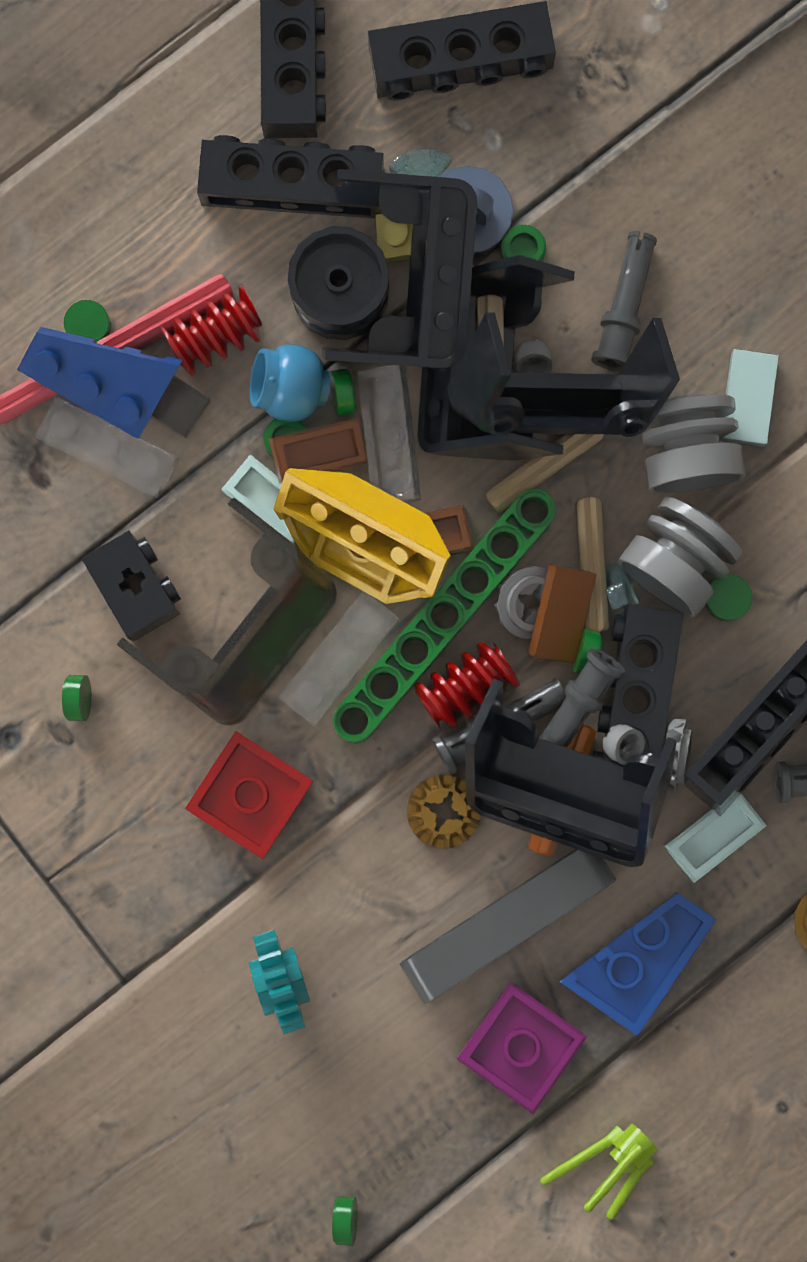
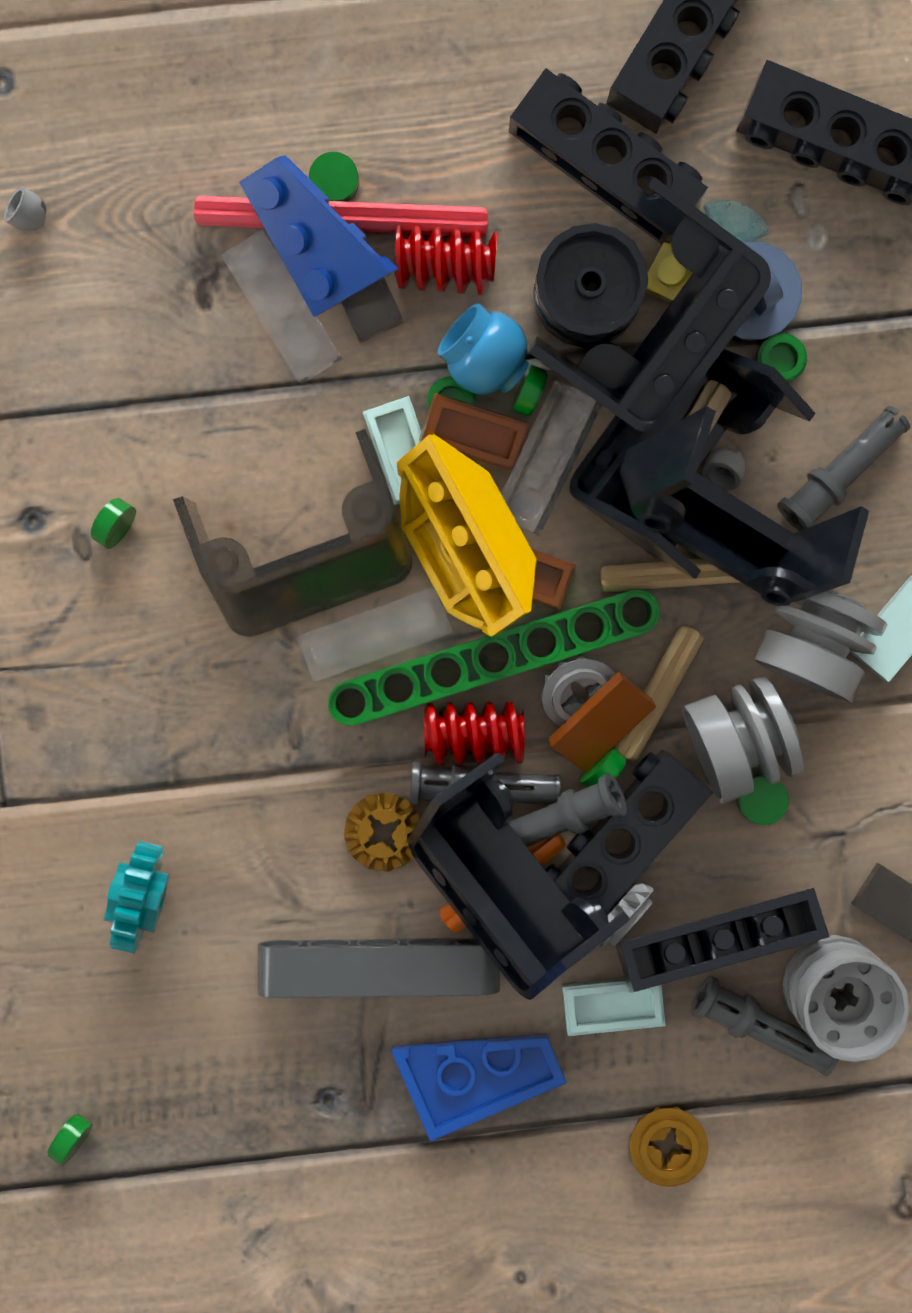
camera: 30 degrees right, 5 degrees up
(111, 567) = (211, 427): black brick -> none
(249, 795) = (216, 708): red plate -> none
(521, 1047) = (321, 1085): magenta plate -> none
(621, 590) = (669, 736): clear light blue tile -> none
(631, 1152) = (360, 1238): lime plant -> none
(632, 737) = (577, 870): light grey hinge -> none

